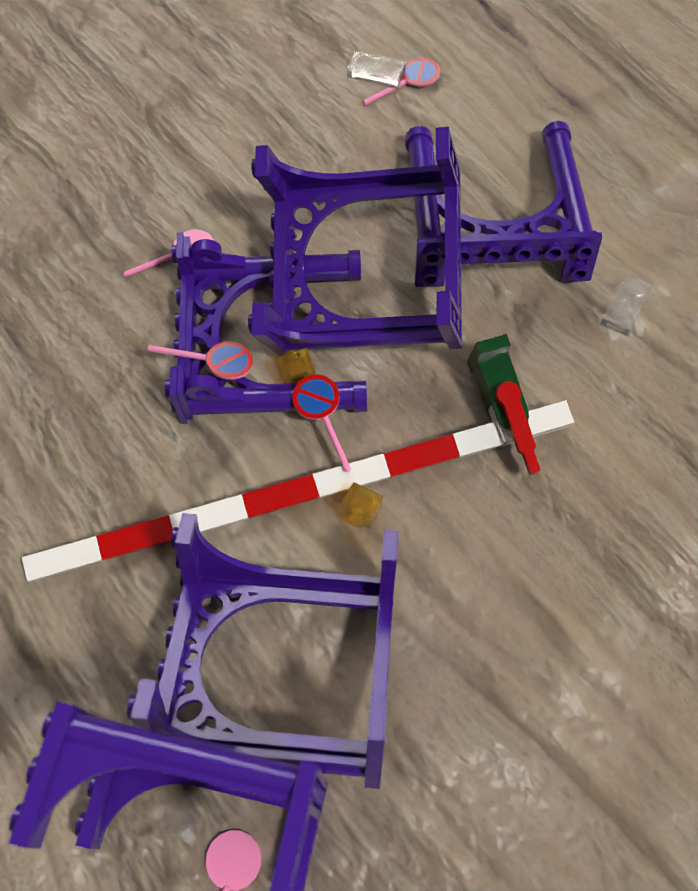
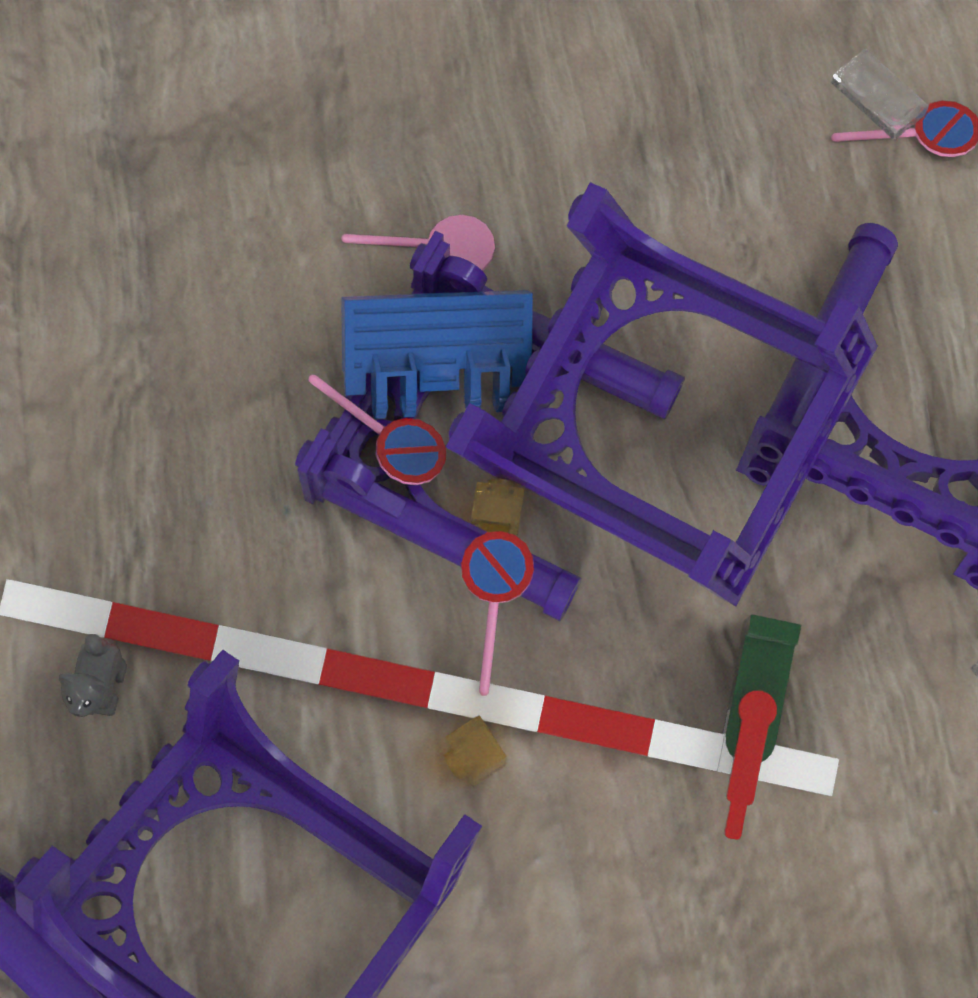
camera: 25 degrees right, 5 degrees up
(108, 585) = (94, 677): none -> dark grey animal
(208, 295) = (437, 339): none -> blue hinge

